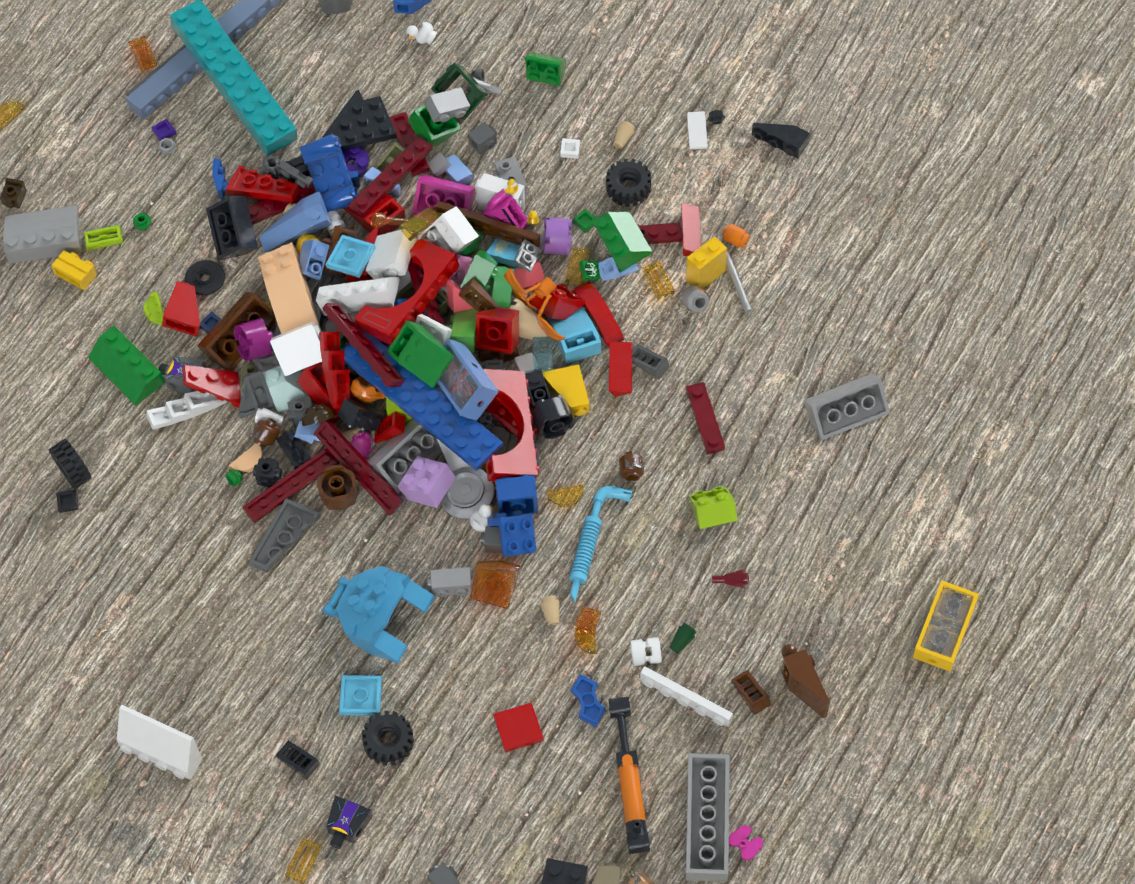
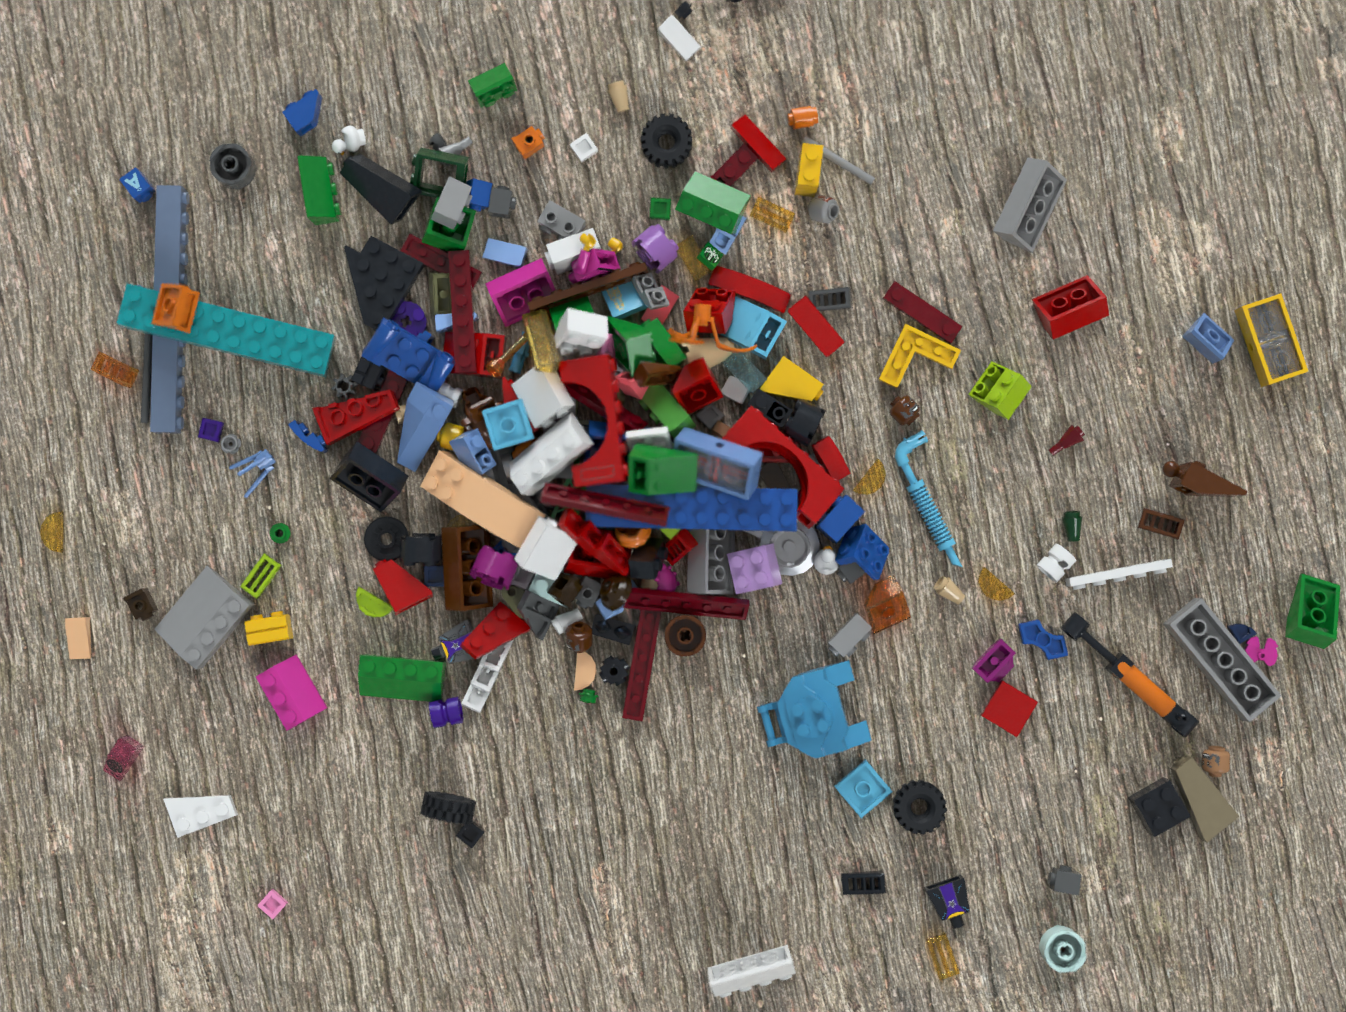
camera: 45 degrees left, 25 degrees up
(47, 318) = (291, 692): none -> dark pink slope
(131, 408) = (446, 712): none -> dark purple wheel
(178, 172) = (262, 459): none -> medium blue plant
(215, 31) = (175, 307): none -> orange bracket
(219, 294) = (421, 548): none -> black brick
(282, 534) = (674, 704): dark grey wing -> none
(287, 171) = (381, 382): dark grey wing -> none
(287, 391) = (565, 589): none -> dark brown brick
(373, 43) = (319, 189): none -> green slope
(414, 73) = (380, 187): none -> black slope
(439, 164) = (487, 261): light grey tile -> none
(471, 120) = (480, 194): none -> blue brick
(536, 117) = (528, 149): none -> orange brick
(537, 685) = (995, 662): none -> magenta slope
(549, 458) = (831, 458): none -> red slope
(587, 621) = (989, 576): clear orange bracket -> none
(675, 427) = (916, 341): none -> yellow plate
(742, 816) = (1241, 632): none -> dark blue tile
(810, 844) = (1314, 612): none -> green slope
(815, 494) = (1071, 307): none -> red slope
(901, 592) = (1209, 339): none -> medium blue slope

